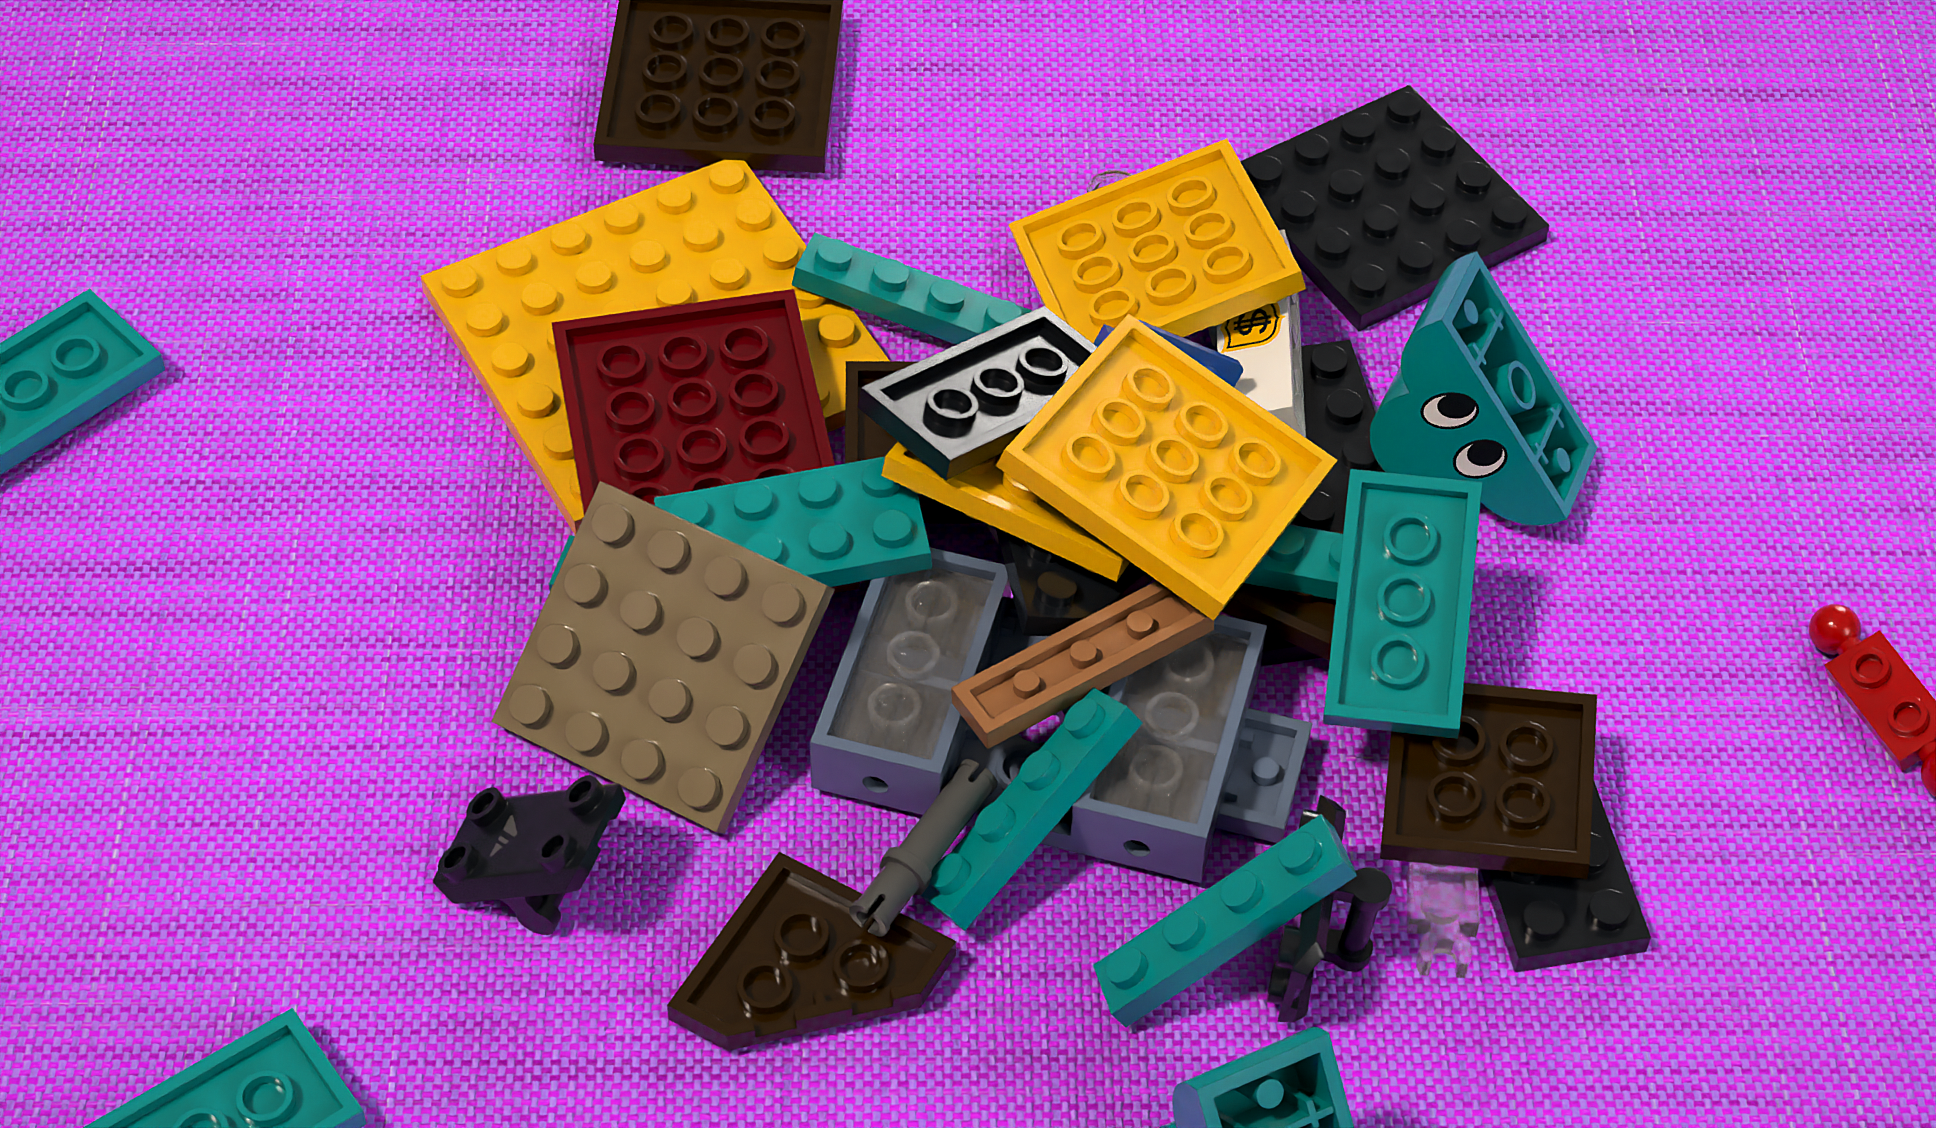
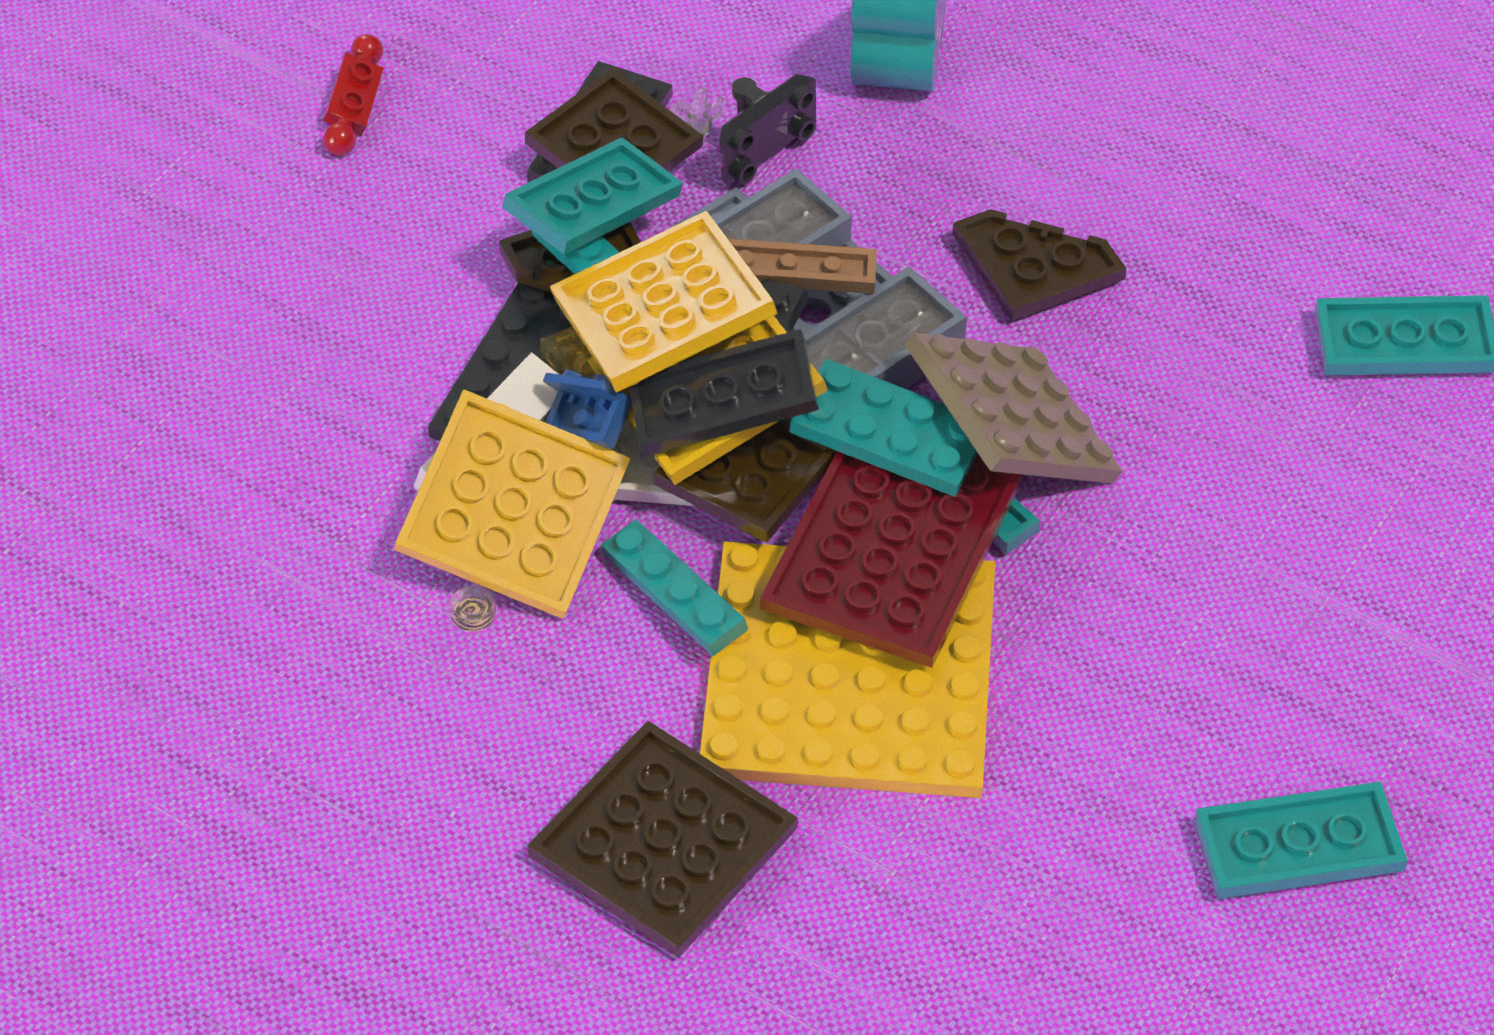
camera: 145 degrees left, 0 degrees up
(528, 848) = (1146, 369): black shield -> none
(908, 867) = (954, 254): dark grey pin -> none
(1029, 807) = (895, 239): teal plate -> none
(1224, 920) = (820, 132): teal plate -> none
(1388, 204) = (308, 510): black plate -> none
(1482, 405) = (429, 308): teal brick -> none

